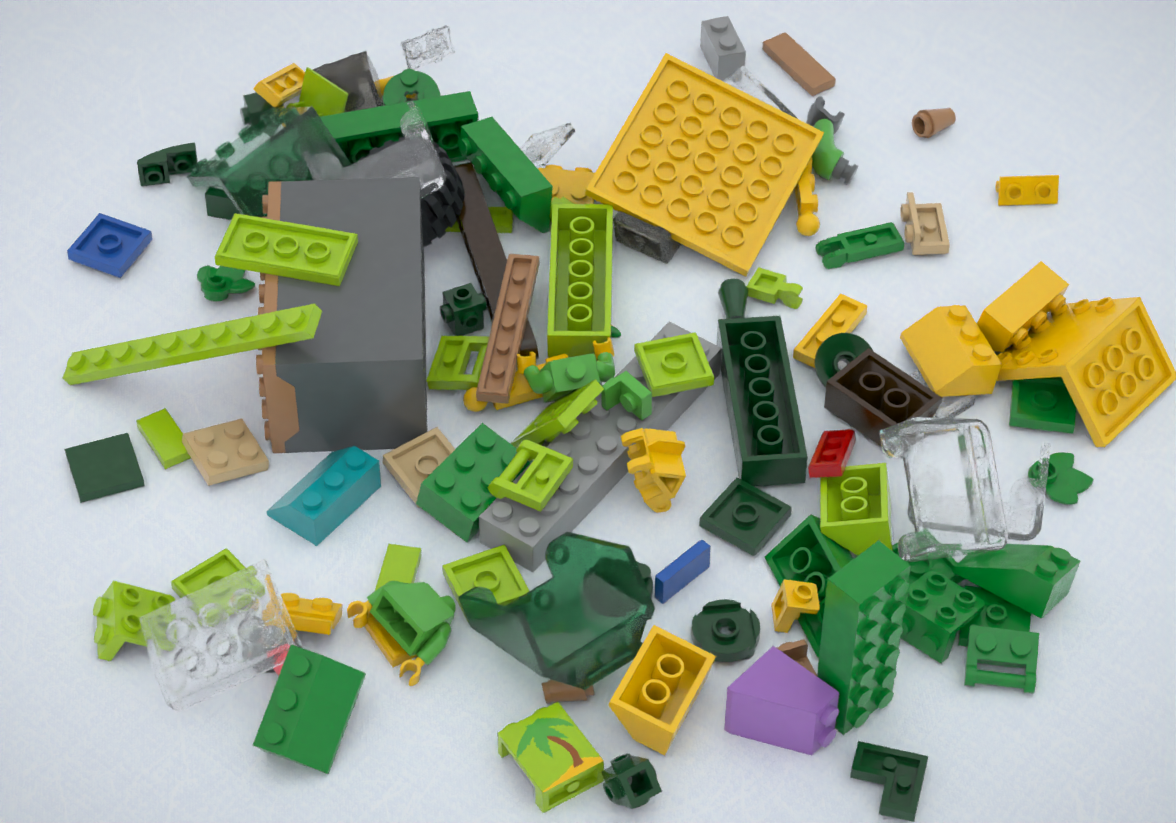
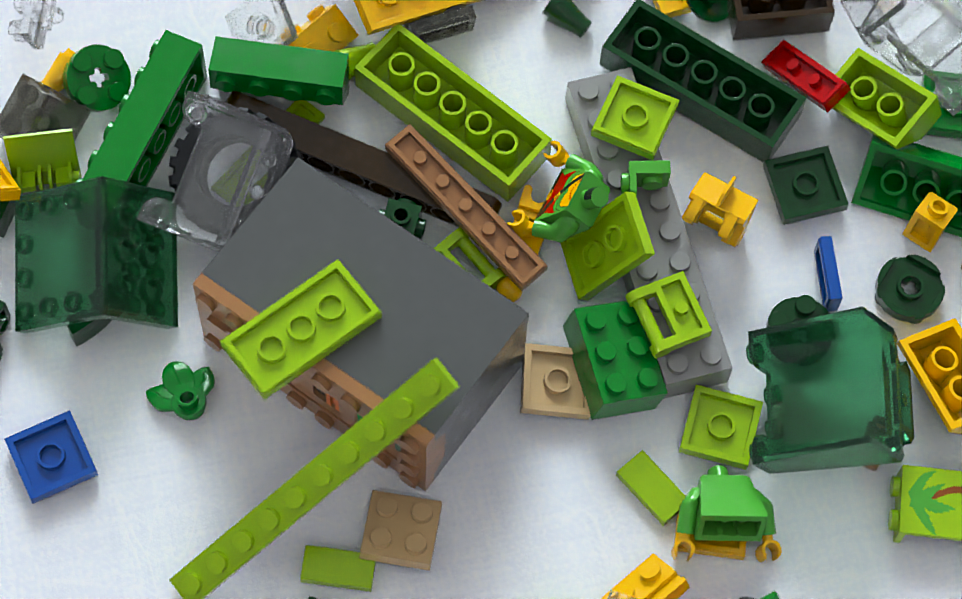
camera: 55 degrees left, 20 degrees up
(328, 494) = (517, 481): teal slope -> none

